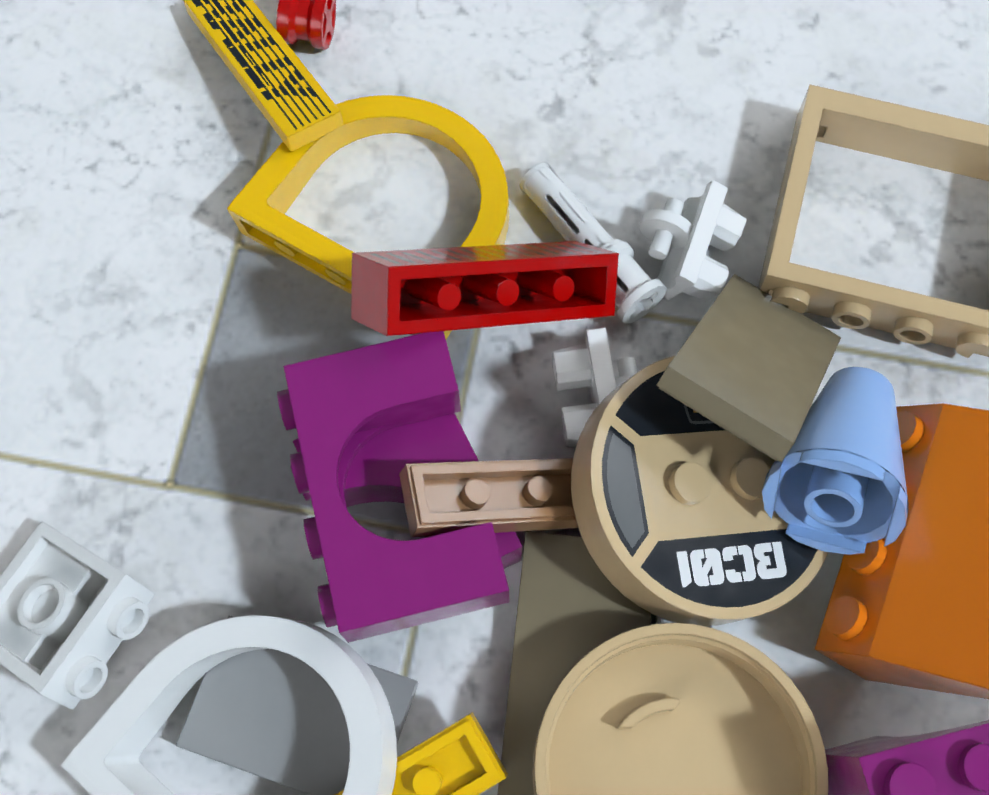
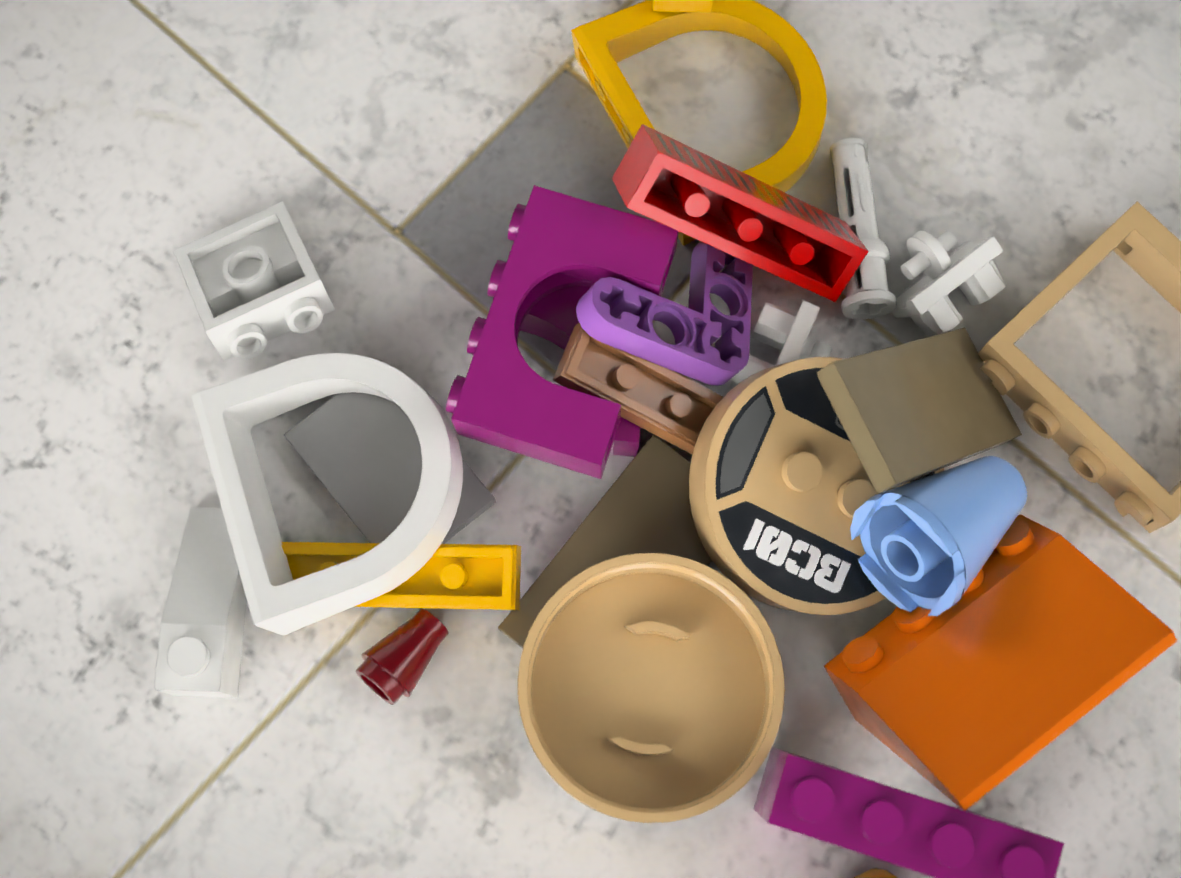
camera: 30 degrees right, 5 degrees up
(527, 416) = (624, 318): none -> medium lavender beam

